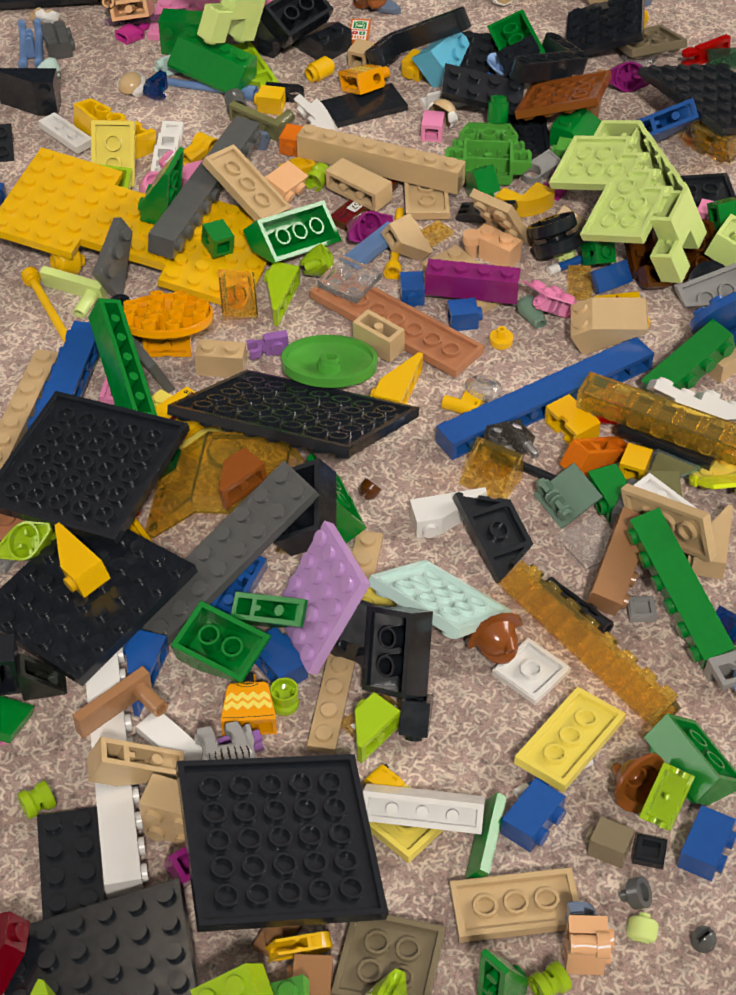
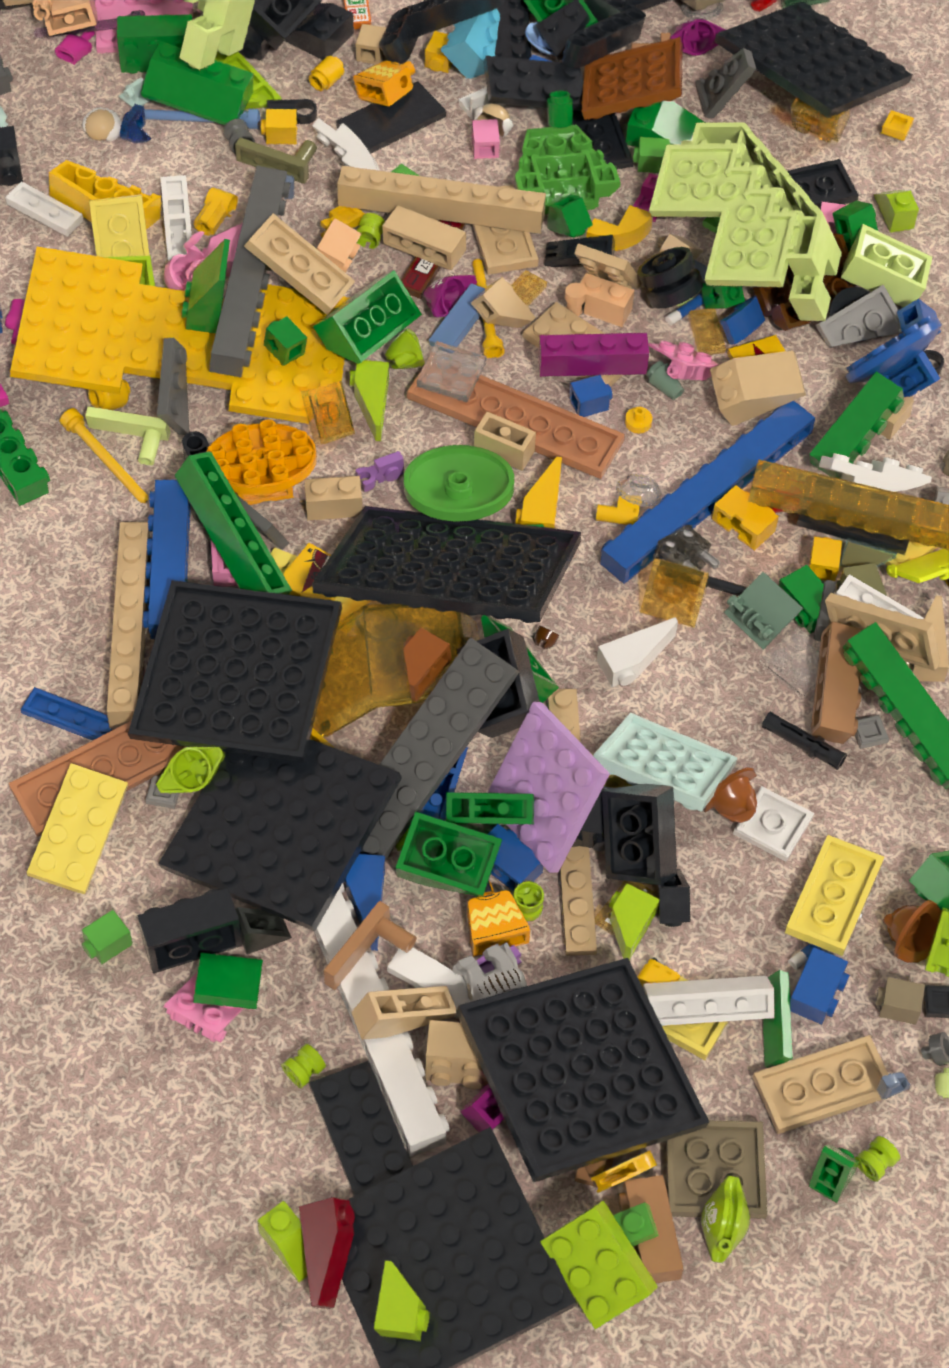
camera: 15 degrees left, 10 degrees up
(80, 565) = (274, 794): yellow slope -> none
(288, 140) = (324, 182): orange brick -> none
(412, 288) = (523, 370): blue brick -> none
(495, 531) = (698, 668): black wing -> none
(543, 165) = (631, 175): light grey piece -> none
(587, 944) = (908, 1114): light nougat hinge -> none
(592, 647) = (829, 785): clear yellow brick -> none
(594, 452) = (780, 553): orange slope -> none
(644, 104) = (725, 82): none -> dark grey wing
(671, 119) = (761, 101): blue slope -> none

